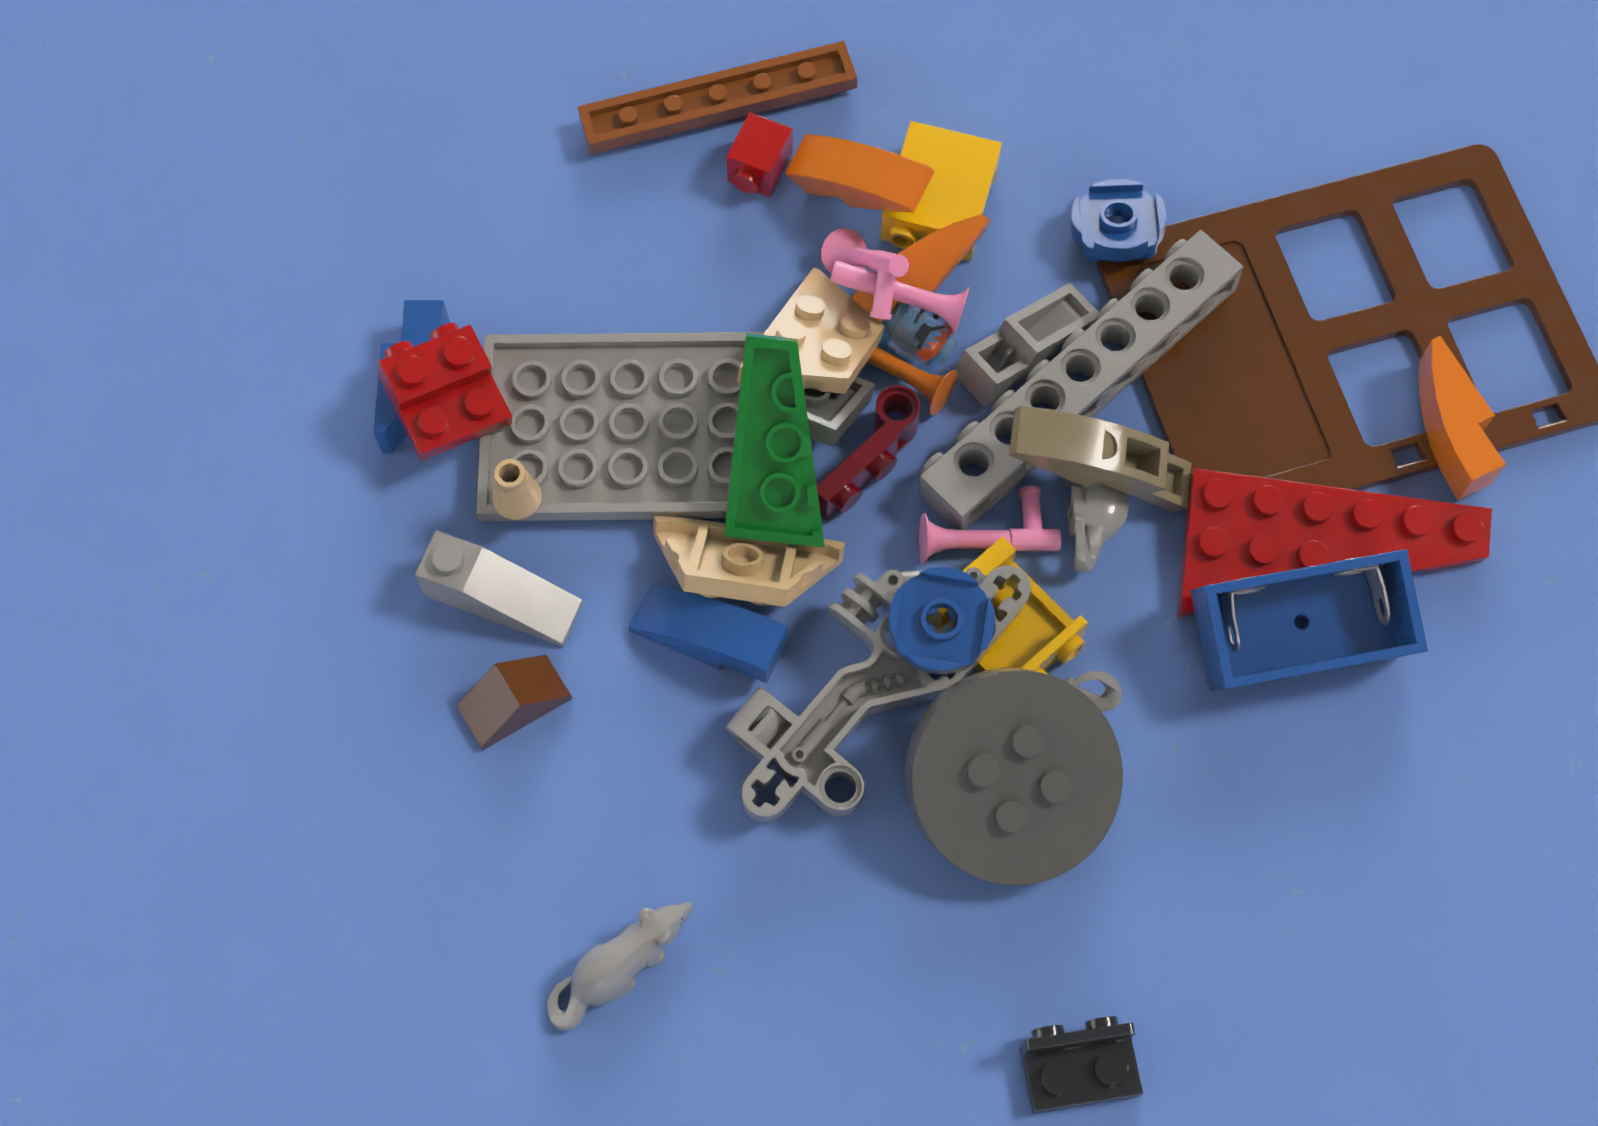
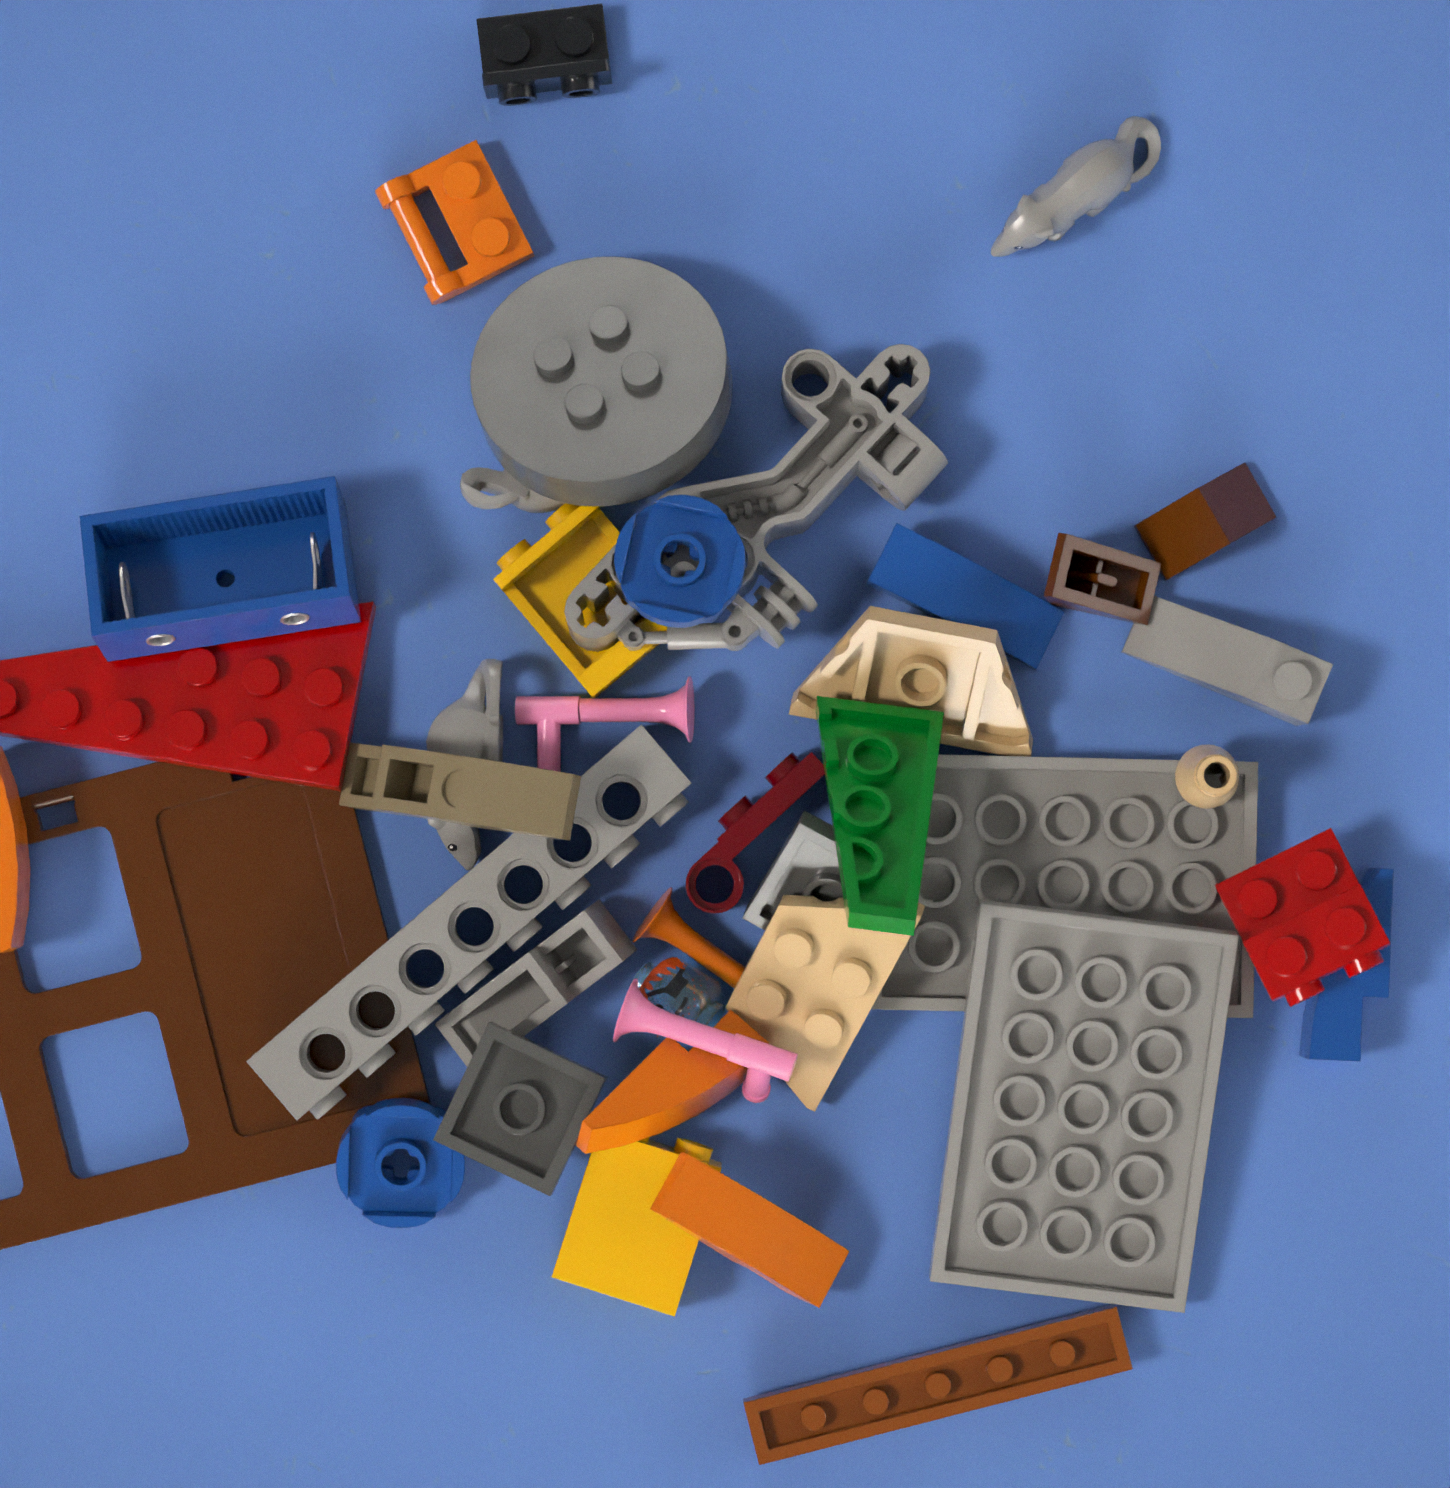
camera: 175 degrees left, 20 degrees up
(599, 643) = (1101, 580): none -> reddish brown slope
(613, 272) = (1082, 1105): none -> light grey plate
(759, 155) = (883, 1282): red brick -> none
(849, 247) = (770, 1129): bright pink piece -> none
(1034, 245) = (520, 1108): none -> dark grey tile
(1129, 929) = (474, 212): none -> orange plate

